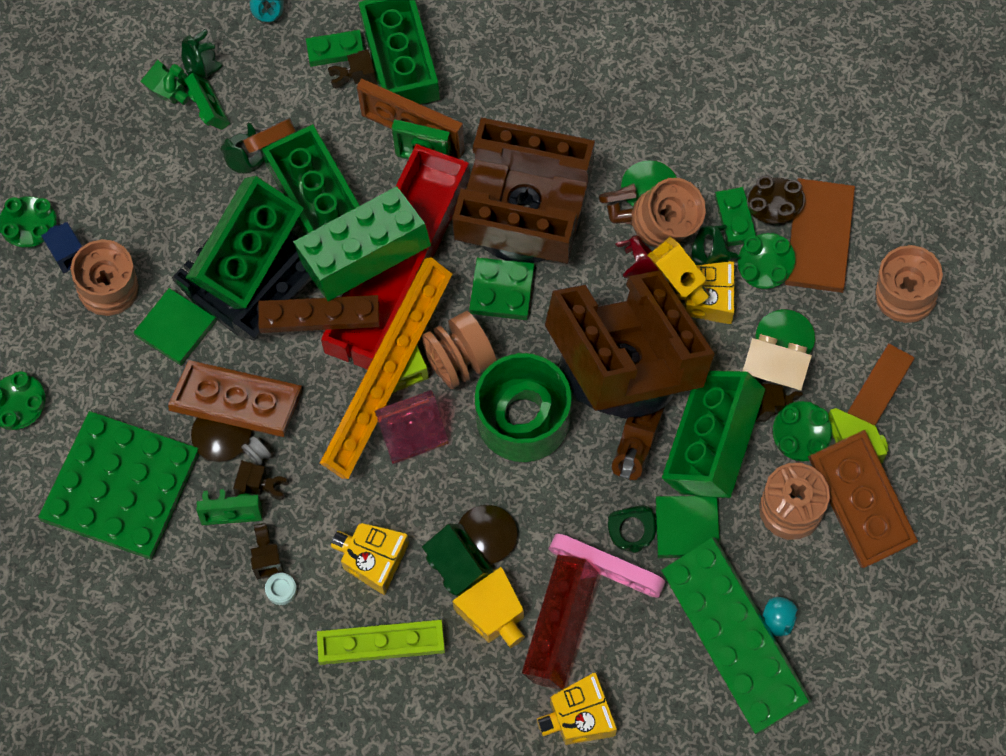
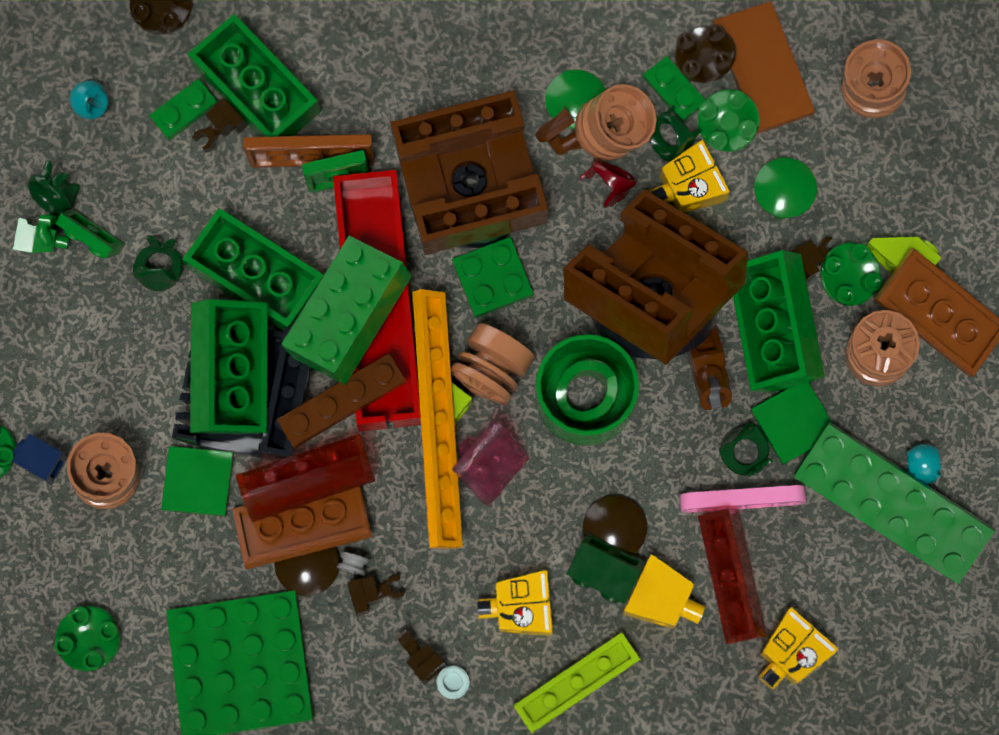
camera: 30 degrees left, 10 degrees up
(229, 509) = (352, 640): green plate -> none
(256, 361) = (305, 478): none -> clear red brick
(269, 135) = (180, 241): dark orange beam -> none
(673, 263) = (661, 179): yellow torso -> none
(777, 363) = (798, 222): tan brick -> none
(881, 384) = (897, 192): dark orange tile -> none

